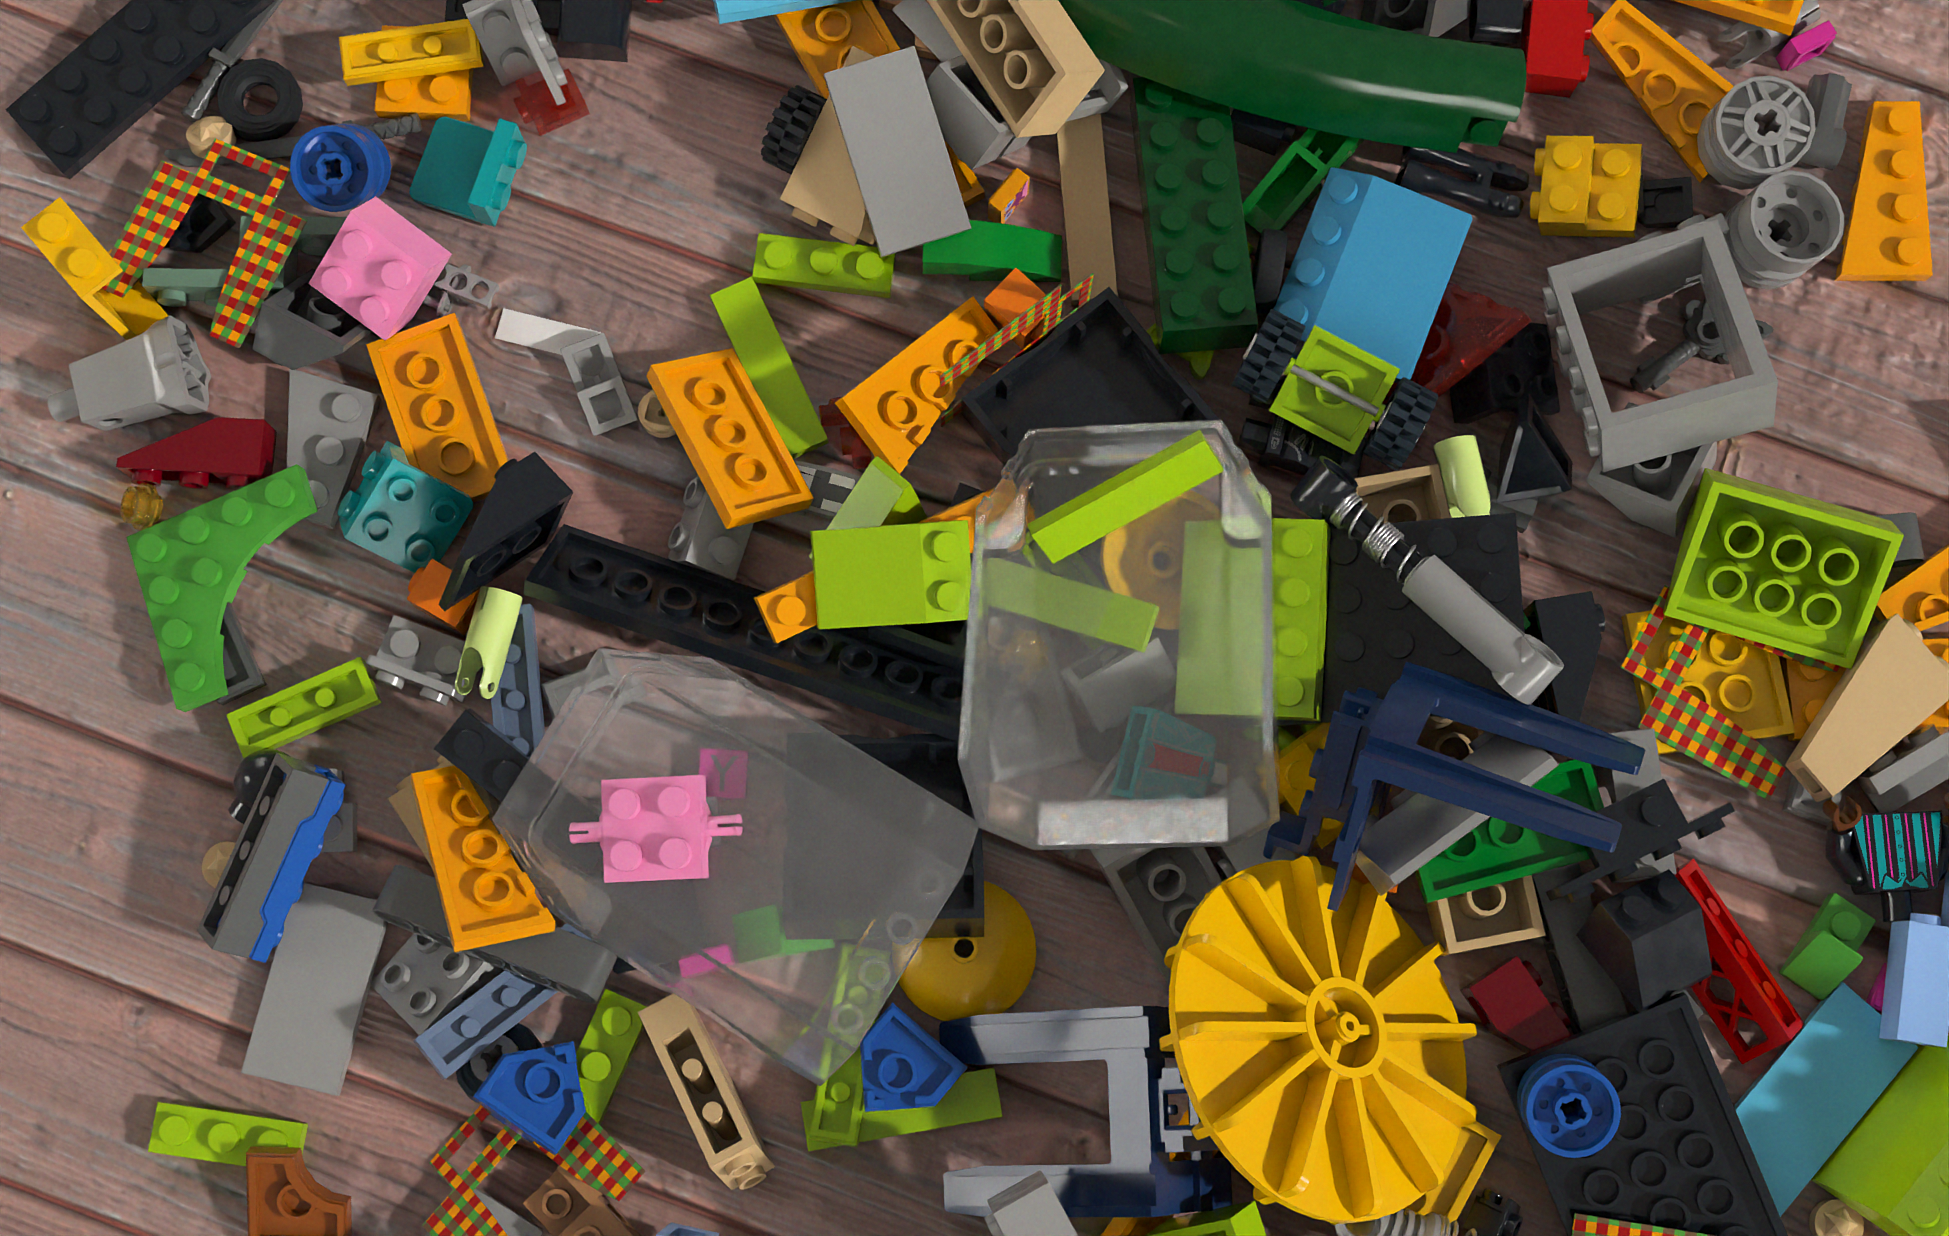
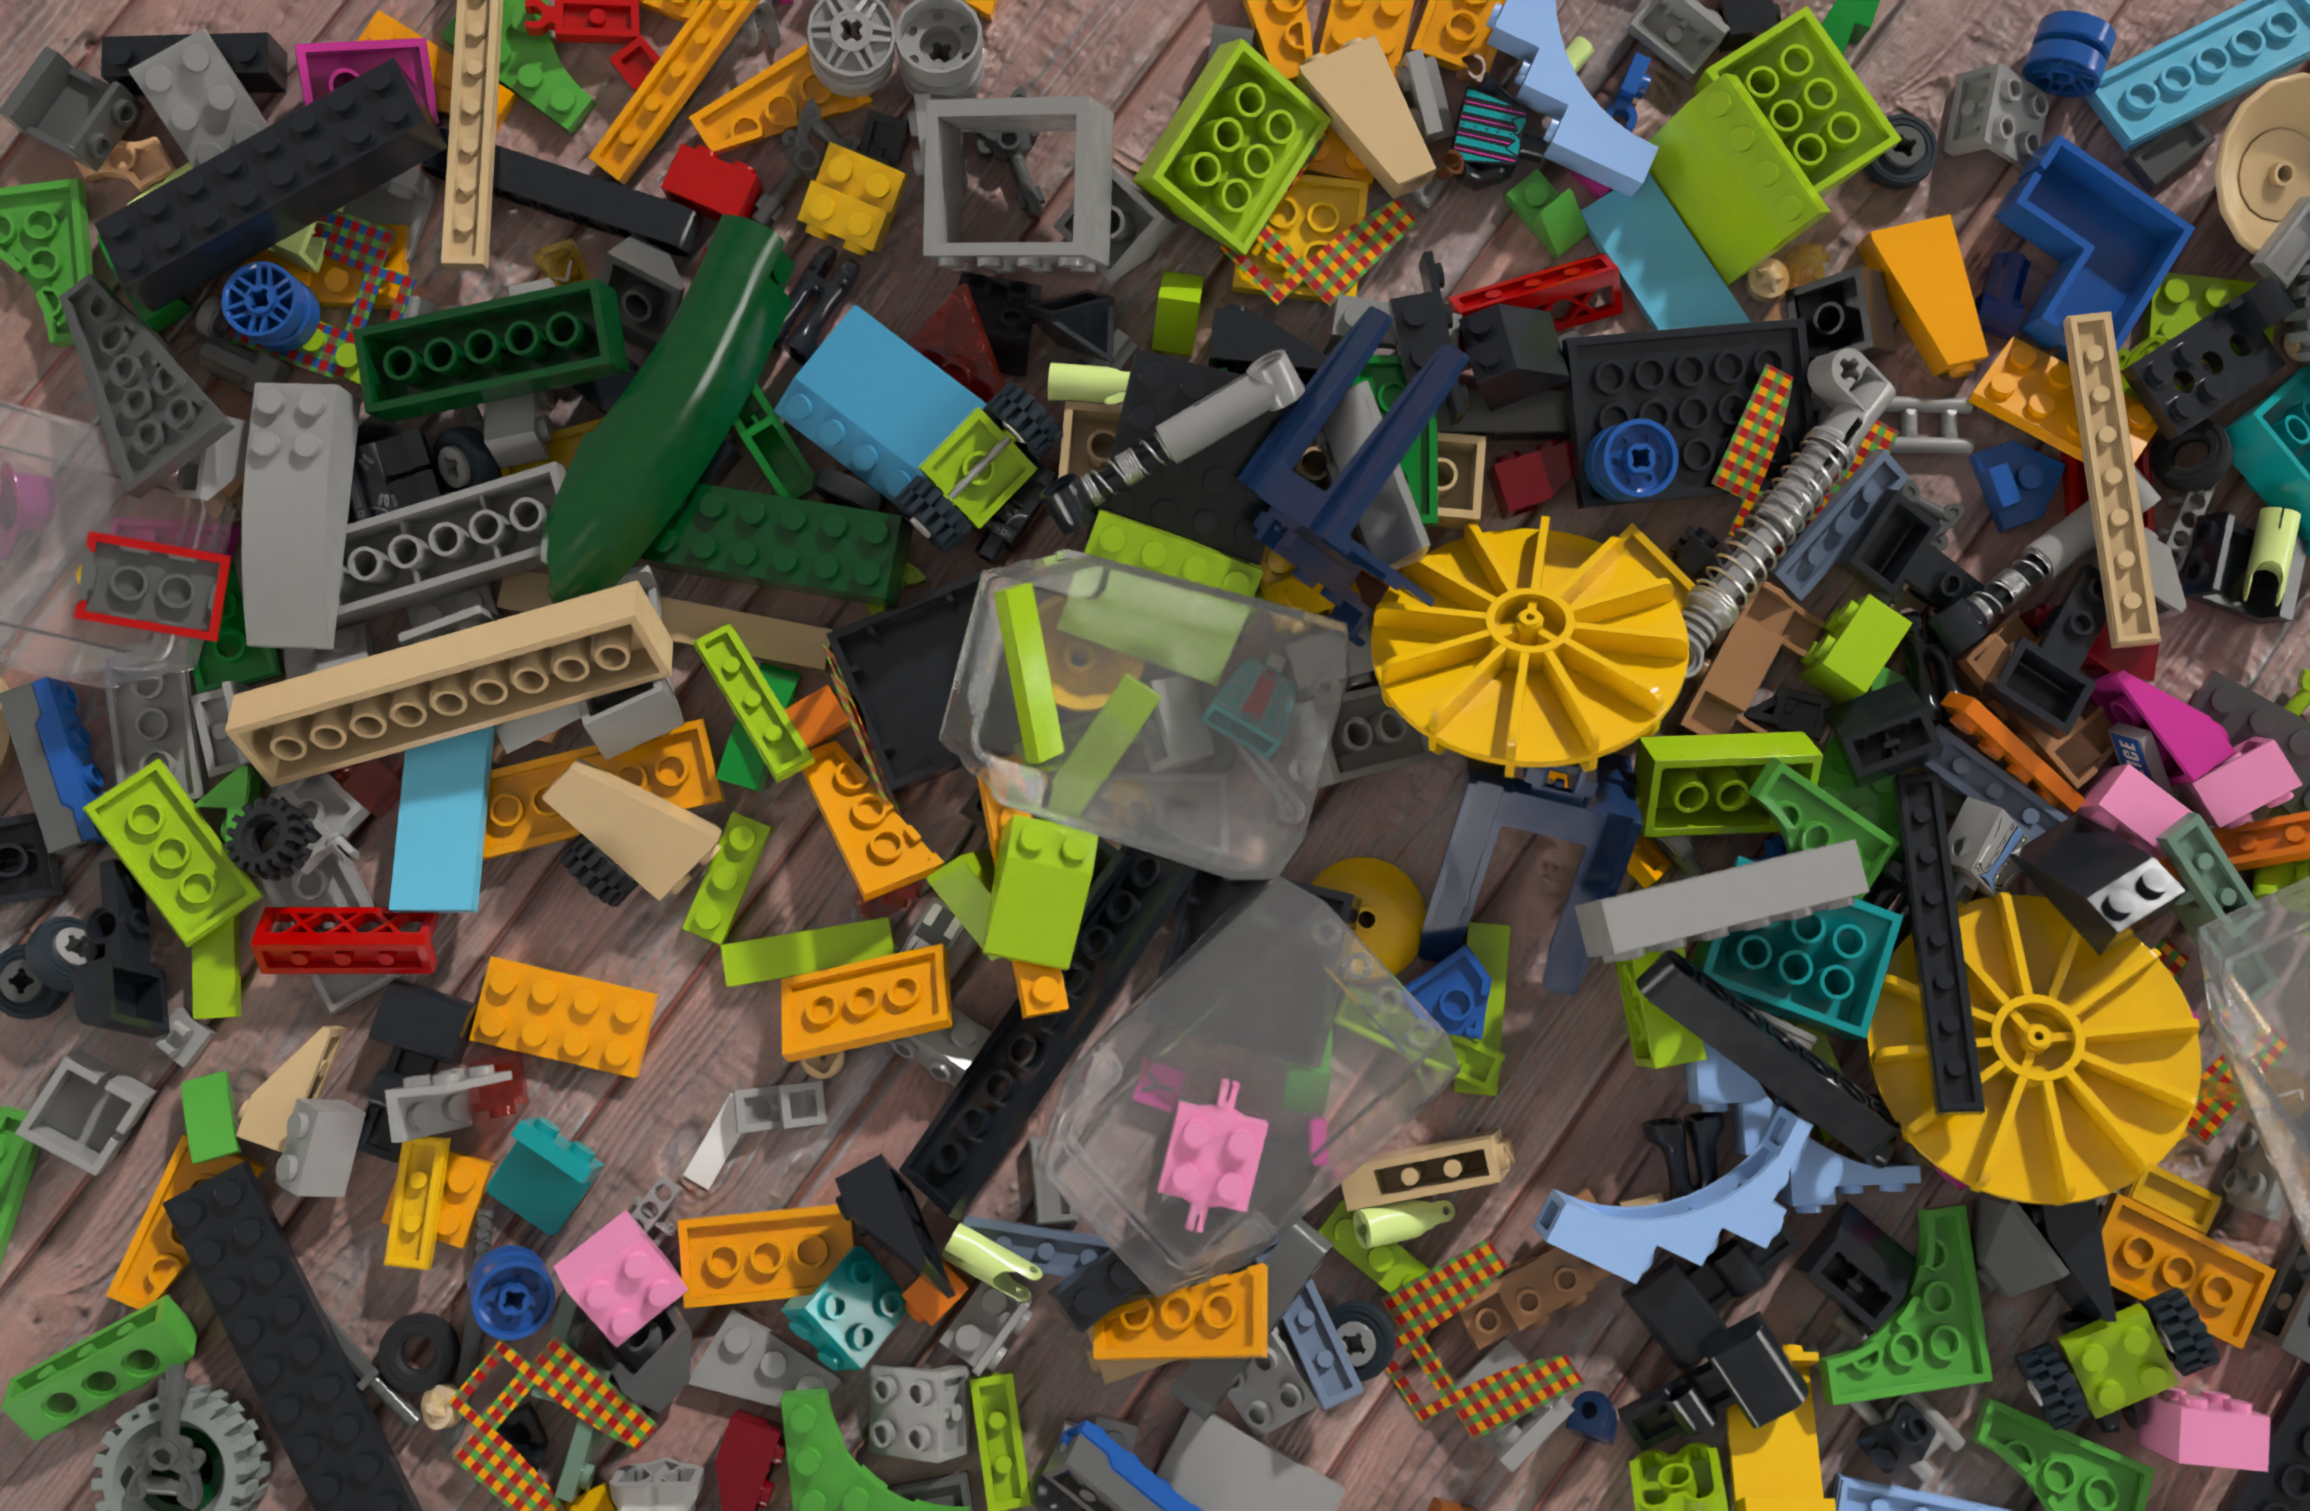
camera: 75 degrees left, 5 degrees up
(315, 617) = (920, 1412): none -> light grey bracket
(536, 1094) = (1396, 1315): blue plate -> none
(636, 144) = (564, 1017): none -> light orange plate
(641, 1074) = (1398, 1221): none -> yellowish green piece
(897, 151) = (651, 784): light grey tile -> none
(1008, 196) = (713, 698): light orange tile -> none
(1014, 234) = (753, 702): none -> lime tile
(1577, 564) = (1177, 313): none -> lime slope
(1615, 124) = (803, 159): none -> dark grey piece

